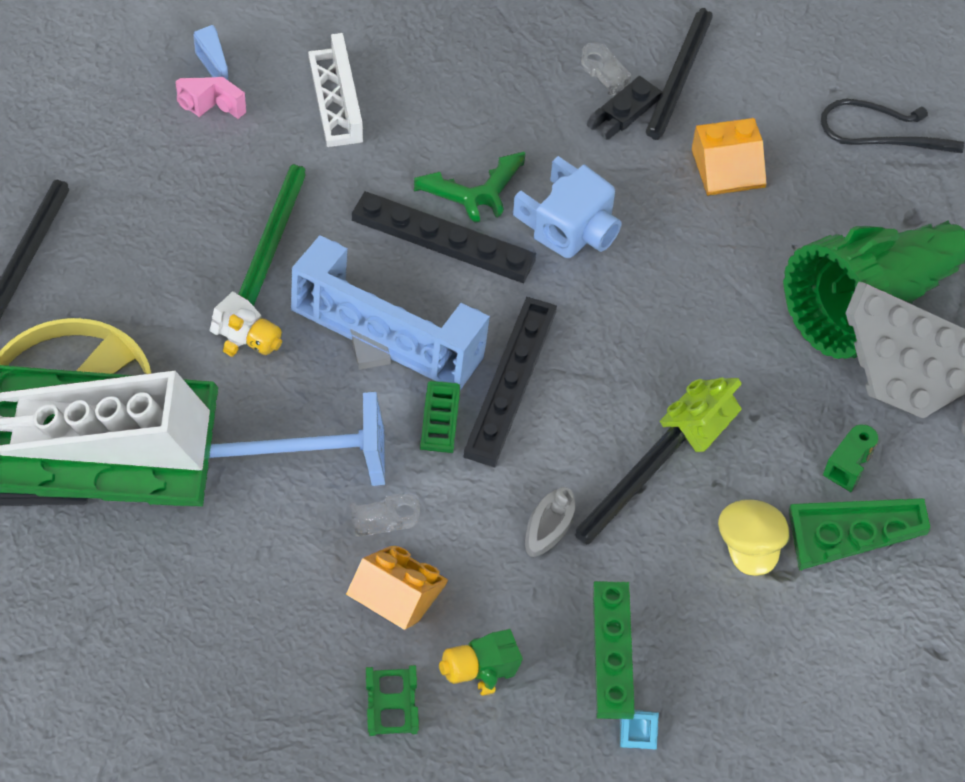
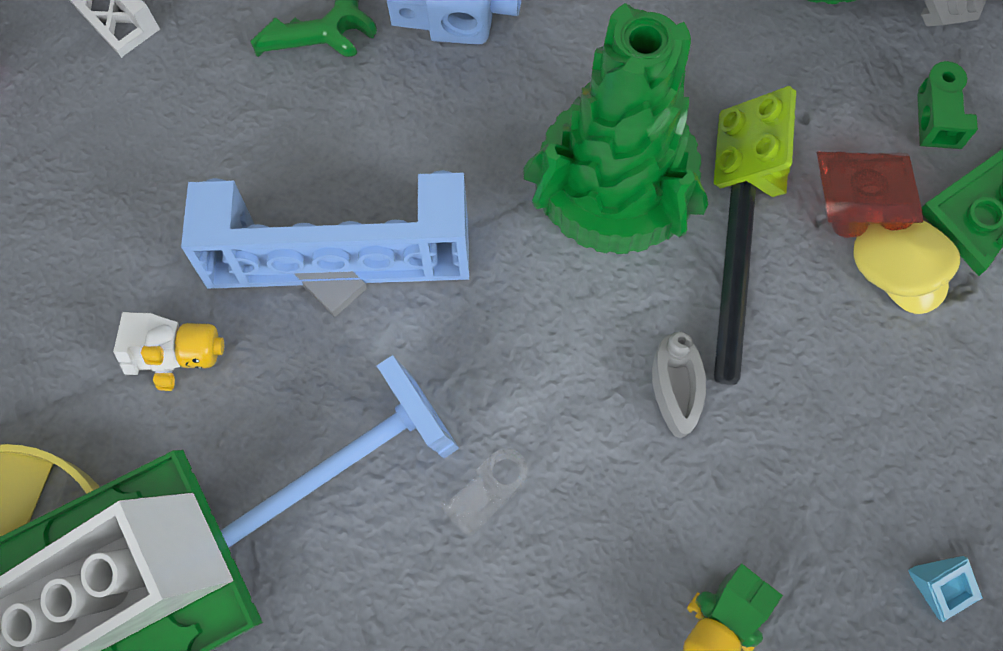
camera: 25 degrees left, 15 degrees up
(272, 233) = (125, 208): green axle -> none
(396, 585) = (566, 583): light orange slope -> none
(440, 396) = (459, 290): green slope -> none
(444, 237) = (326, 95): black plate -> none
(510, 382) = (522, 236): black plate -> none
(602, 367) = (622, 158): none -> green cone
(613, 650) = (880, 520): green plate -> none
(753, 473) = (867, 191): none -> clear red slope

